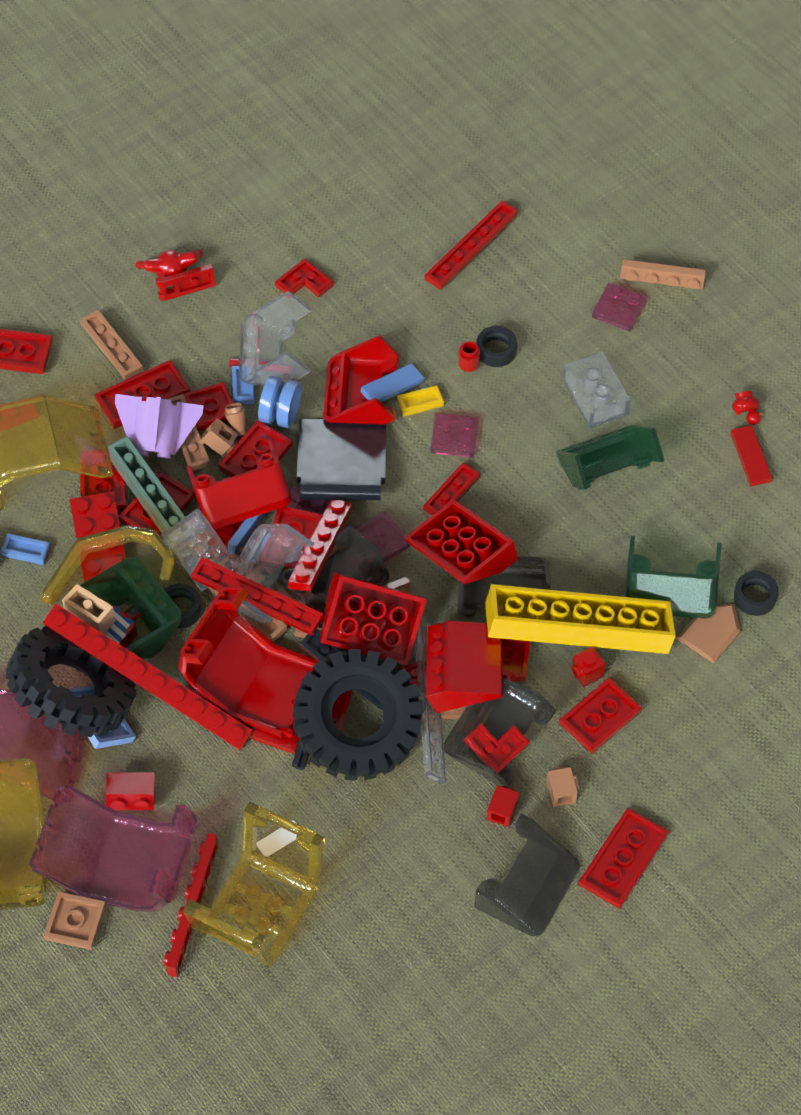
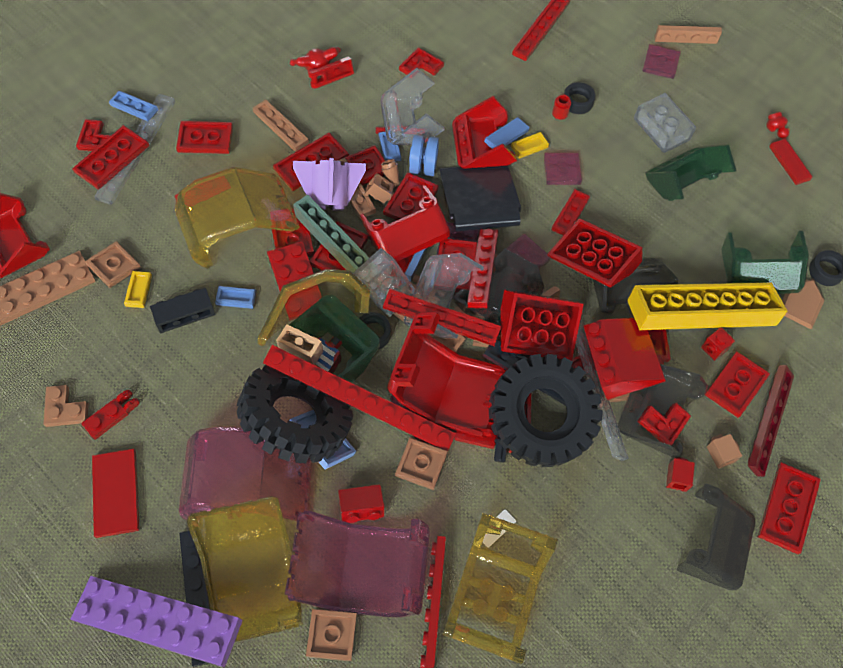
camera: 10 degrees left, 5 degrees up
(207, 758) = (421, 463): none -> nougat plate
(628, 760) = (771, 421): none -> dark red plate

